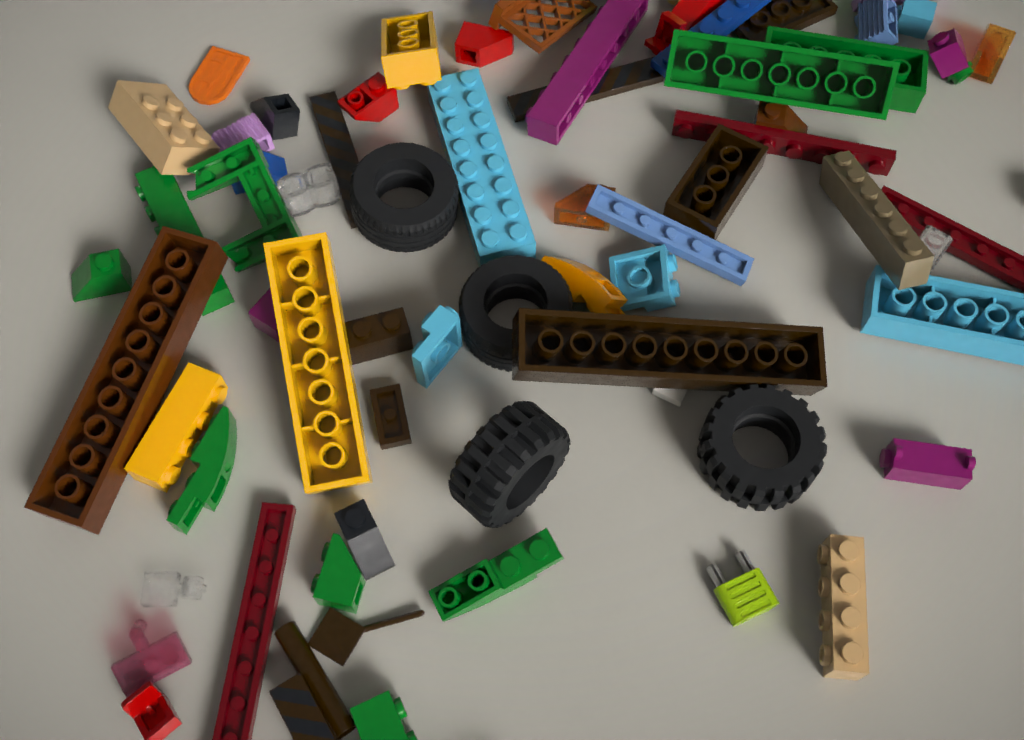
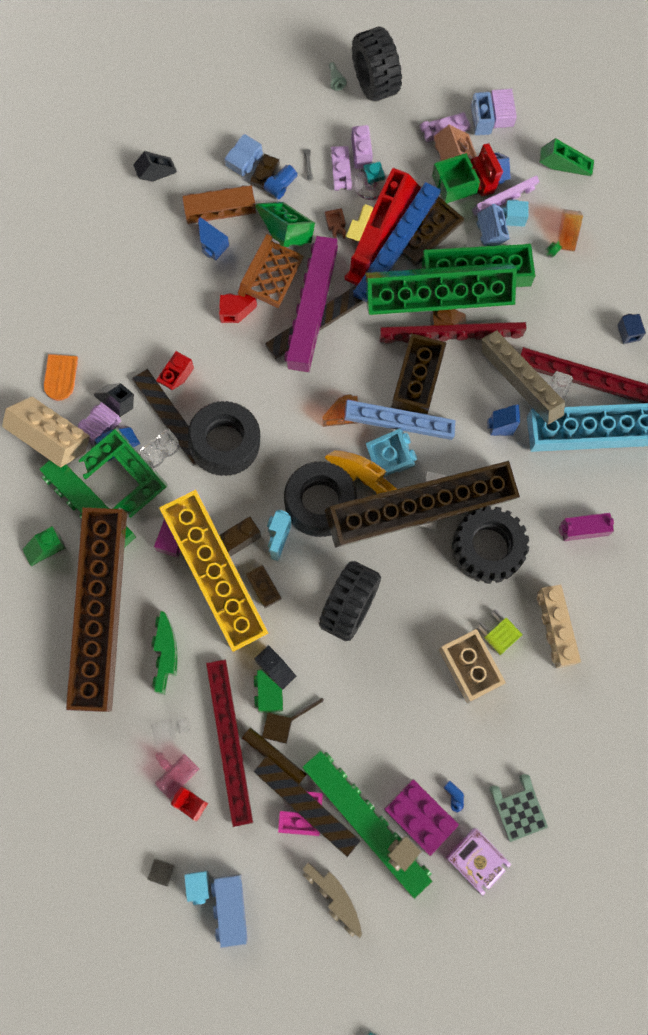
camera: 20 degrees left, 10 degrees up
(177, 427) = (135, 631): yellow brick -> none
(410, 50) = (193, 329): yellow brick -> none
(483, 172) = (264, 399): medium azure brick -> none
(496, 576) = (359, 666): green slope -> none
(680, 628) = (471, 666): none -> tan brick
(830, 276) = (504, 421): none -> blue slope
(948, 52) = (543, 240): magenta slope -> none

